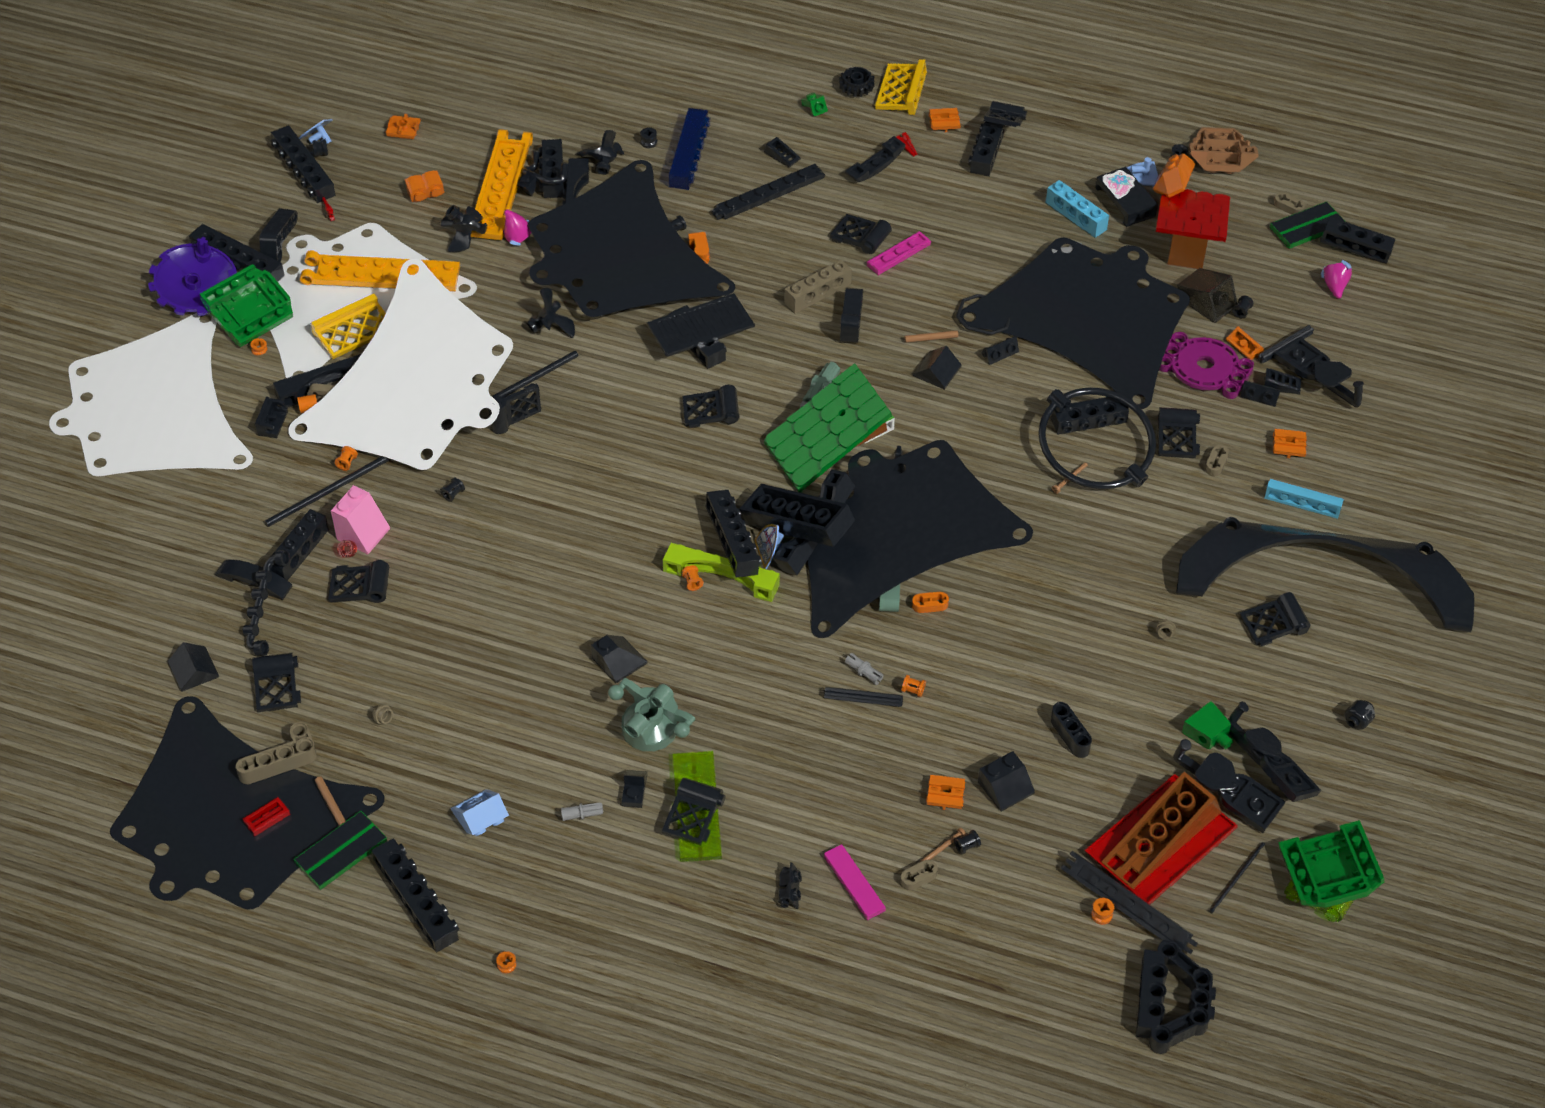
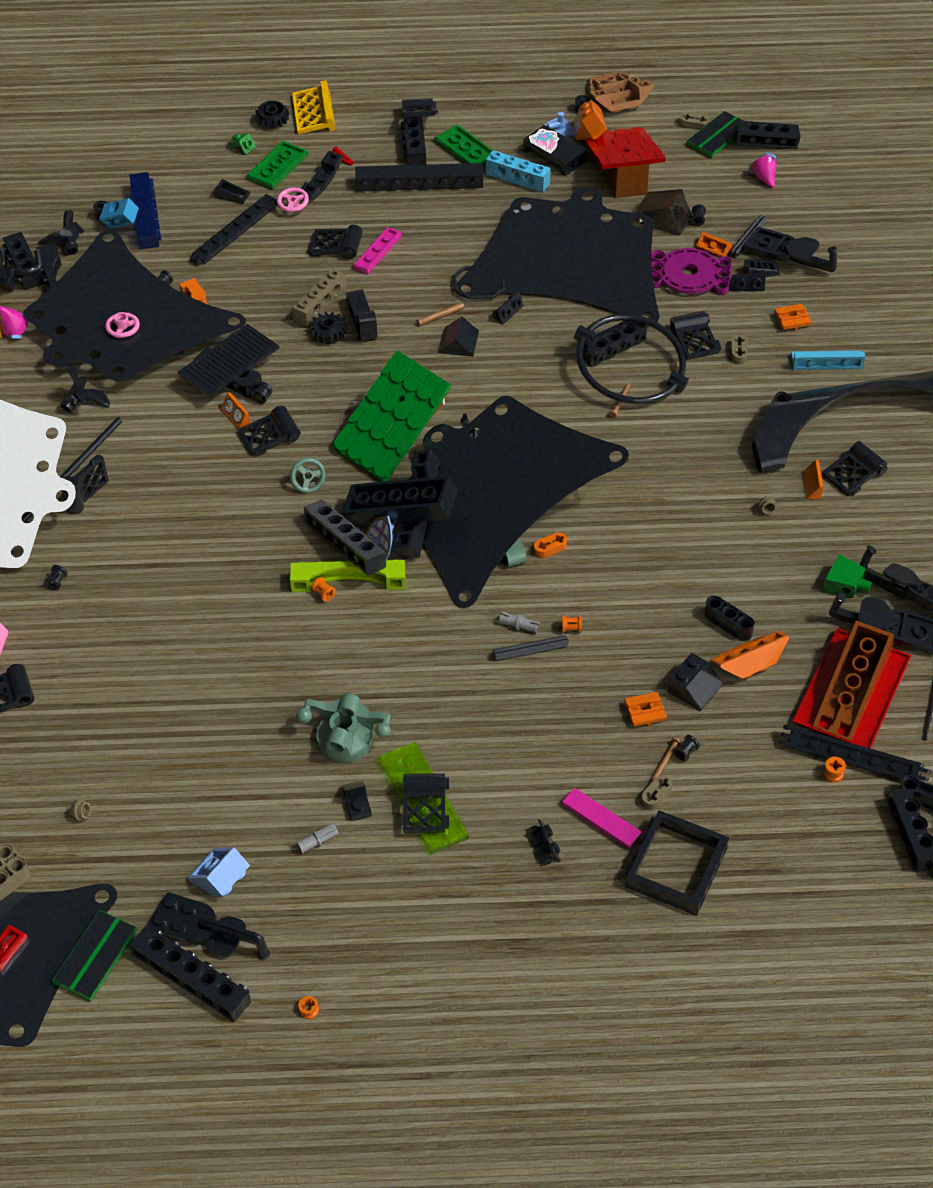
camera: 20 degrees left, 0 degrees up
(330, 801) = (65, 912): medium nougat bar -> none
(440, 851) = (182, 917): none -> black plate
(615, 258) = (122, 323): none -> bright pink piece
(616, 657) = (285, 684): black slope -> none
(661, 145) = (119, 213): none -> dark azure brick
(686, 378) = (235, 411): none -> slope
(720, 366) = (261, 392): none -> black wheel
(726, 455) = (303, 470): none -> sand green piece
(813, 319) = (328, 328): none -> black gear
(822, 380) = (363, 380): sand green piece -> none
(837, 180) = (293, 202): none -> bright pink piece
(839, 136) = (277, 165): none -> green tile
(927, 971) = (662, 892): none -> black window
(944, 119) = (364, 126): orange piece -> none
(974, 187) = (419, 177): none -> black brick
(1036, 167) = (463, 145): none -> green tile
(1073, 775) = (753, 655): none -> orange wedge
(1225, 619) = (813, 481): none -> orange slope

